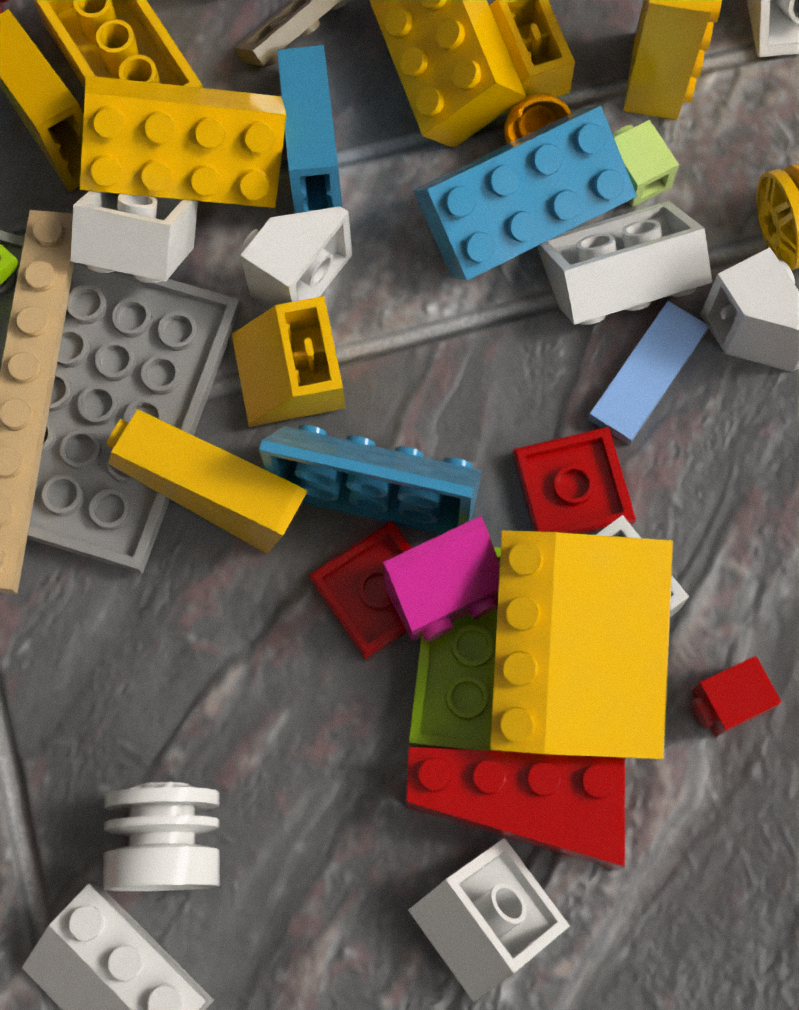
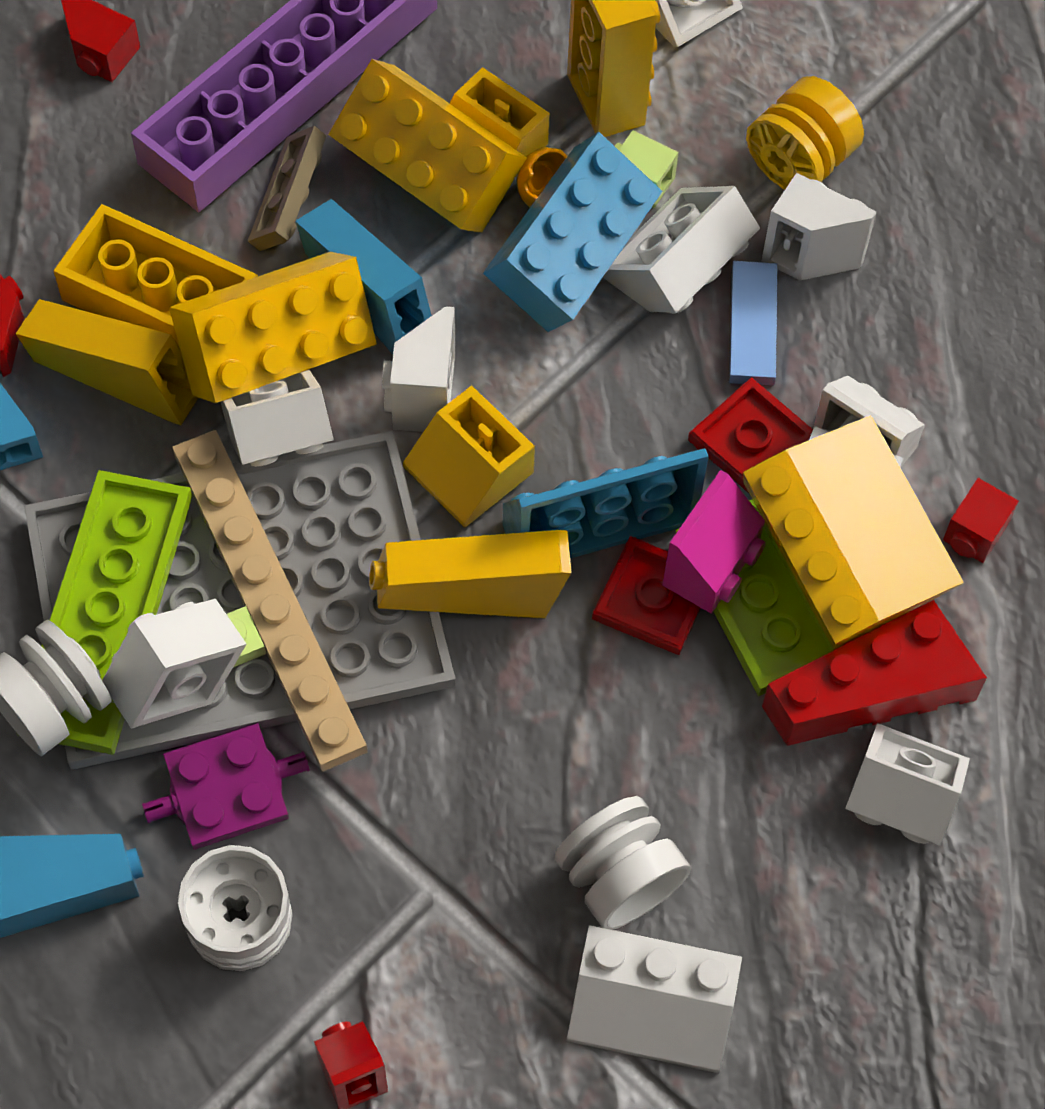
camera: 35 degrees left, 10 degrees down
(688, 518) = (850, 401): none -> white slope

